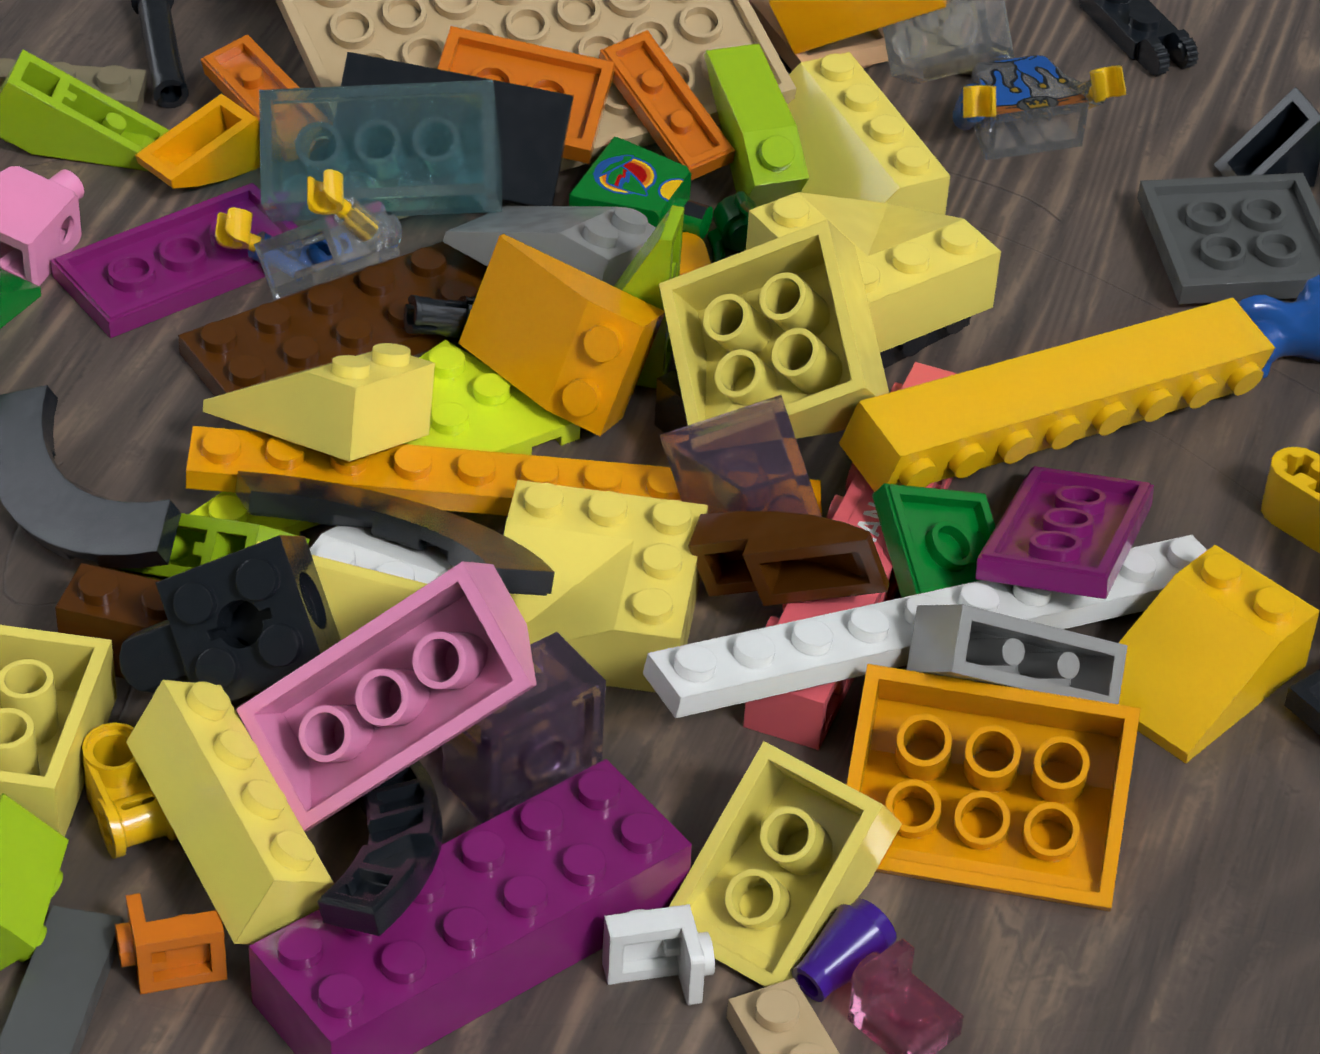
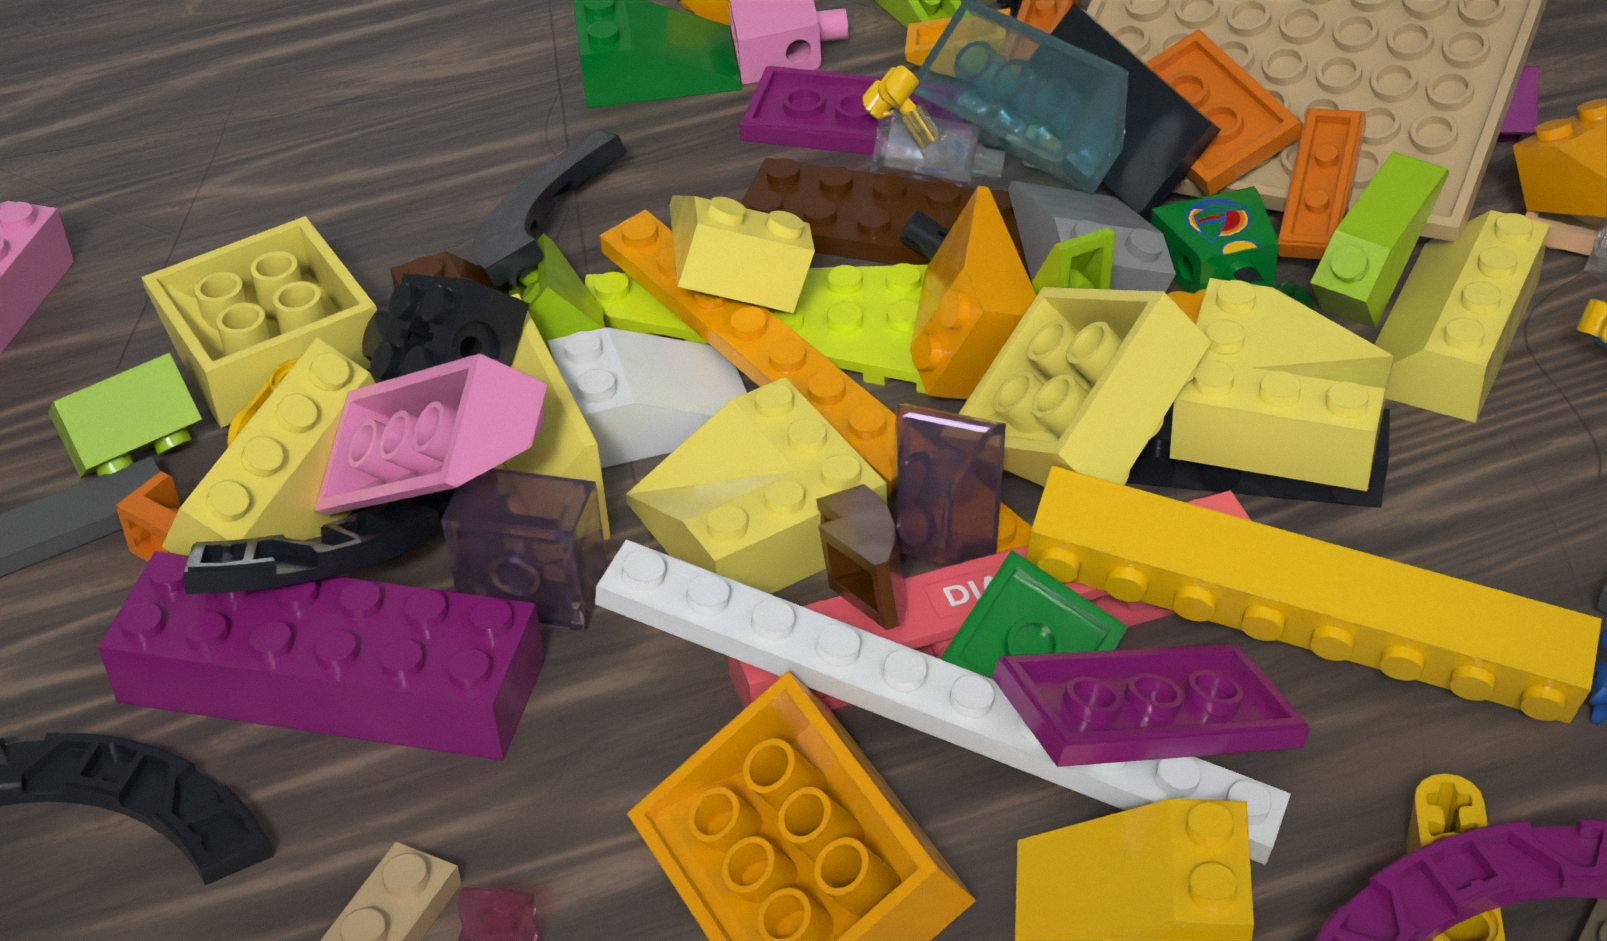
camera: 55 degrees right, 0 degrees up
(396, 521) = (678, 357): black tile -> none
(656, 946) = (408, 768): white bracket -> none
(783, 864) = (561, 777): light yellow slope -> none
(841, 946) = (527, 867): dark purple cone -> none
(1014, 653) = (921, 759): light grey brick -> none

